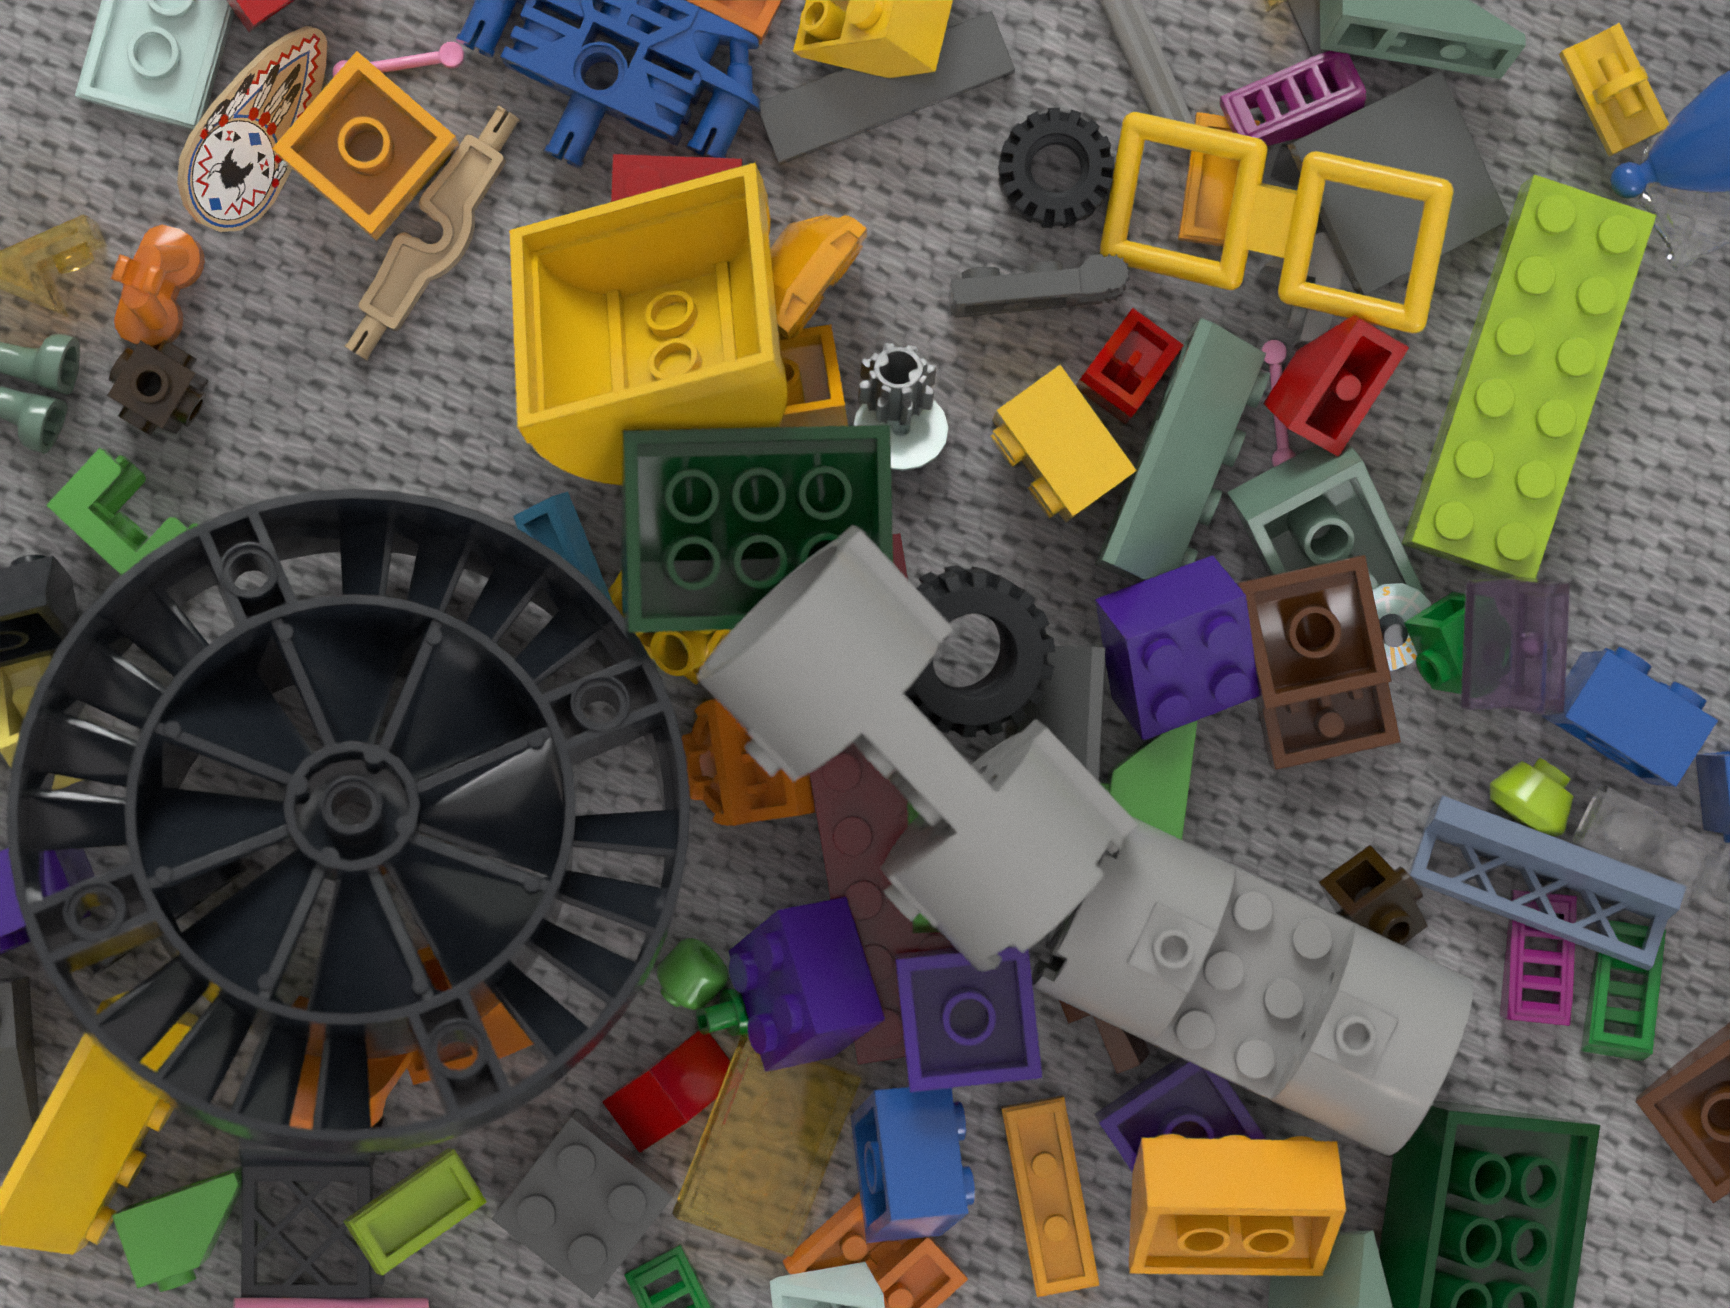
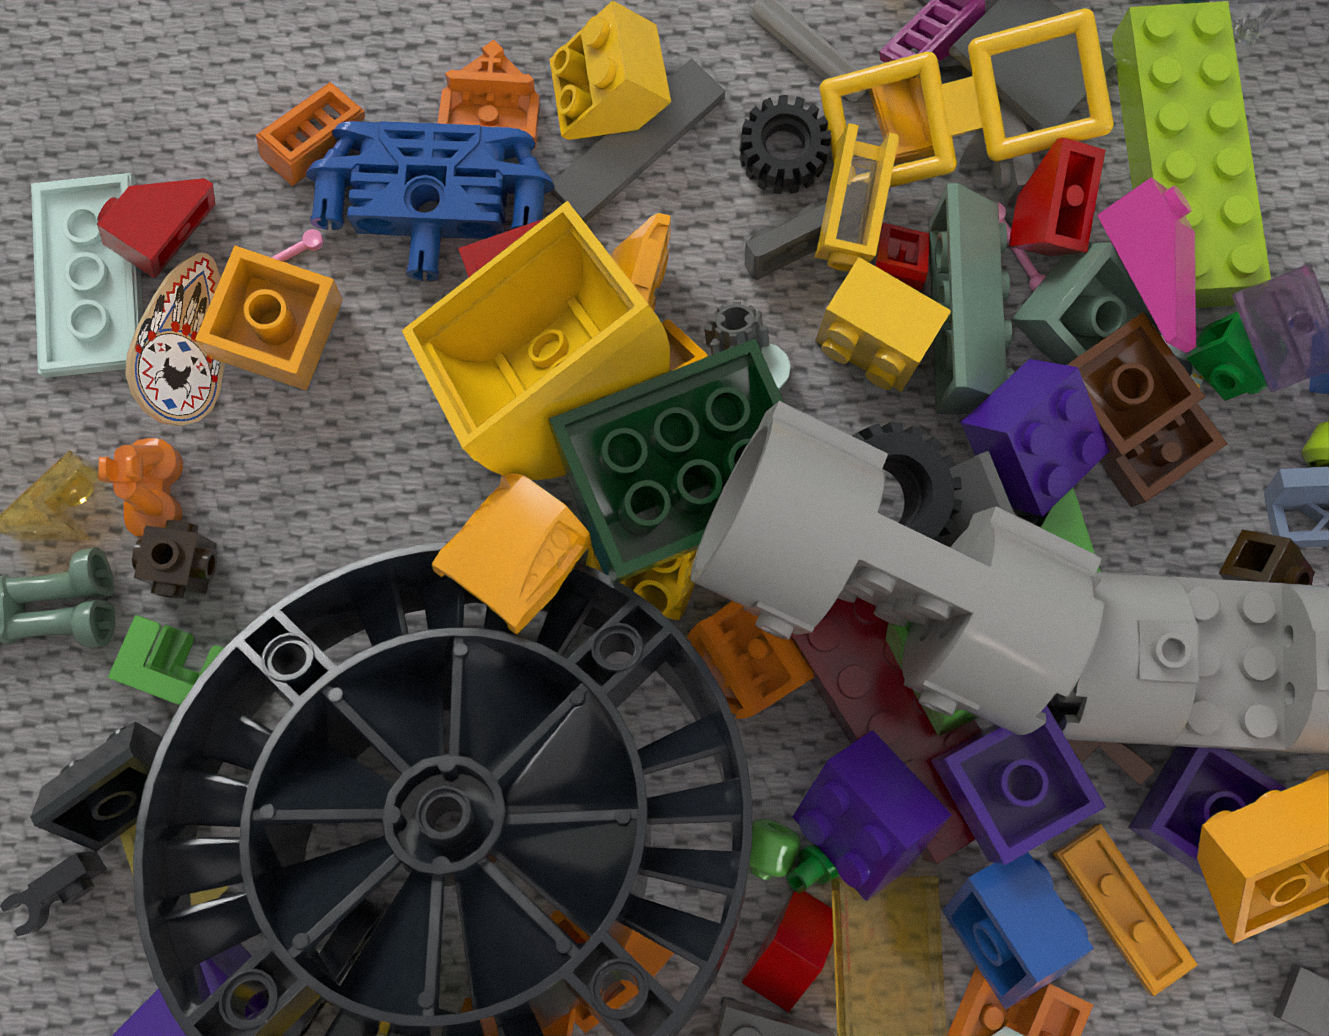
camera: 25 degrees left, 10 degrees down
(452, 203) = (341, 395): tan piece -> none
(532, 552) = (515, 550): none -> light orange slope
(1095, 287) = (856, 200): none -> yellow window
(1409, 500) = (1159, 254): none -> dark pink slope

